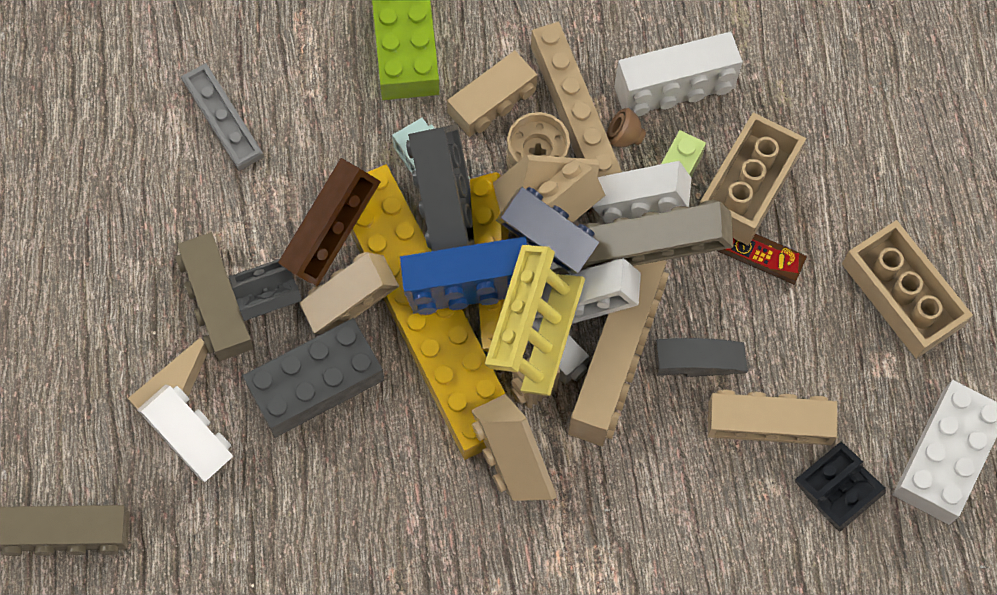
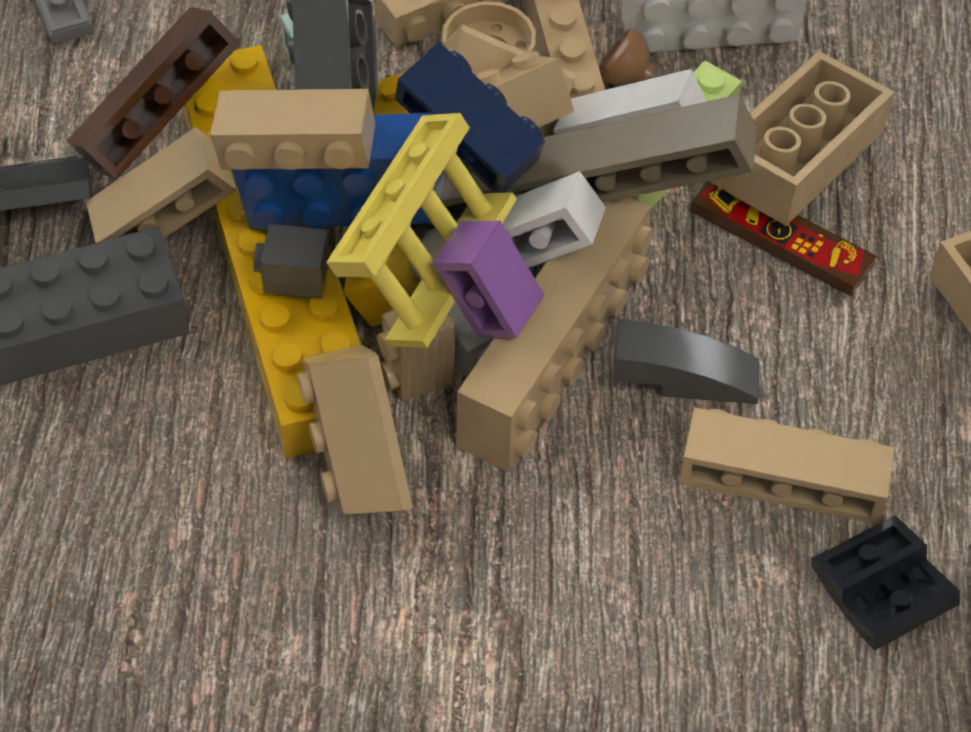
camera: 10 degrees right, 15 degrees down
(442, 267) = (293, 129): none -> tan brick
(449, 338) = (293, 261): none -> dark grey brick
(579, 343) = (488, 279): none -> medium lavender brick

